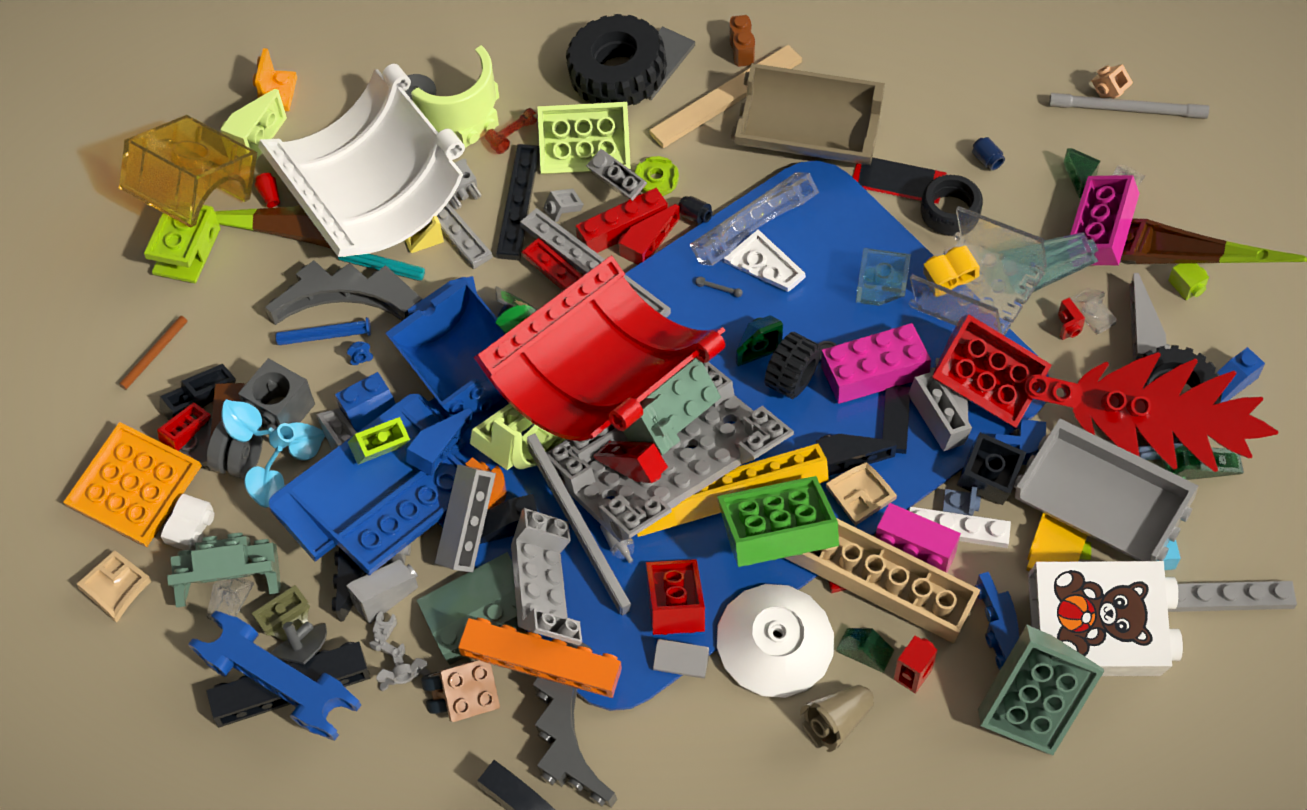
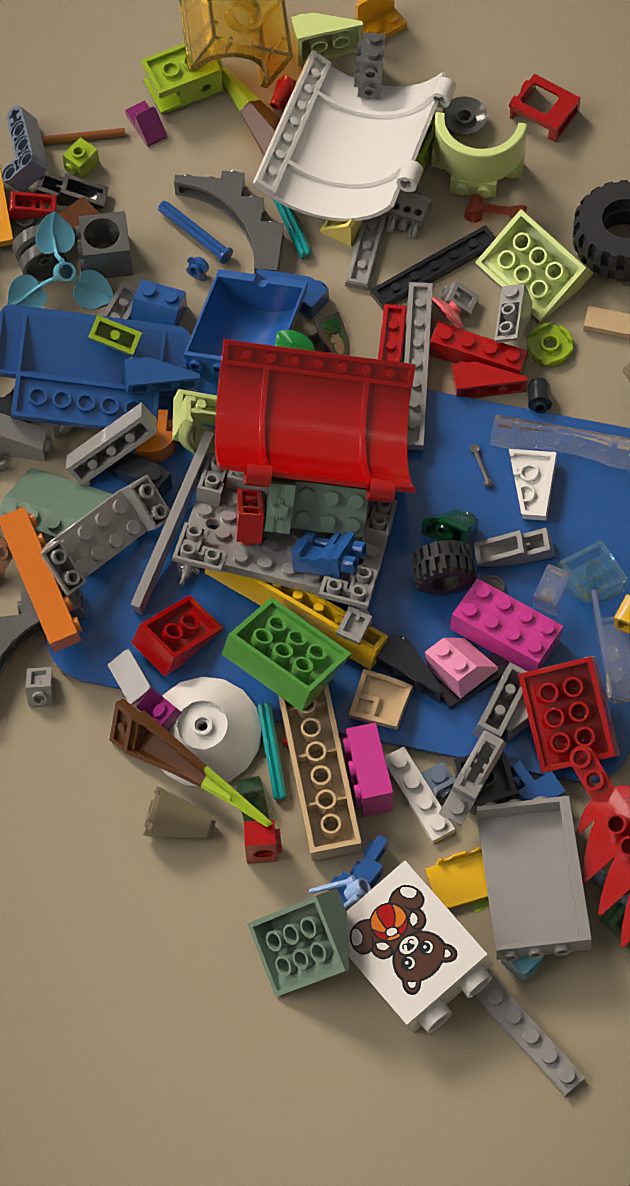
camera: 50 degrees right, 5 degrees up
(146, 398) = (28, 148): none -> sand blue beam
(175, 363) = (80, 158): none -> lime brick
(193, 297) = (146, 123): none -> magenta slope
(313, 113) = (369, 65): none -> dark grey brick
(475, 31) = (559, 115): none -> red window
(572, 214) = (450, 311): none -> coral dish
(624, 735) = (39, 686): none -> light grey bracket
(720, 429) = (328, 555): none -> blue hips
(733, 655) = (159, 708): none -> magenta slope
(759, 681) = (147, 740): none -> reddish brown plate
(795, 455) = (355, 624): none -> light grey bracket
(813, 309) = (515, 548): none -> light grey slope
(836, 601) = (272, 751): none -> teal axle
(874, 310) = (551, 590): none -> clear slope
(881, 417) = (458, 664): none -> bright pink slope
(997, 469) = (472, 778): none -> light grey plate
(1018, 622) = (354, 892): none -> light blue plant

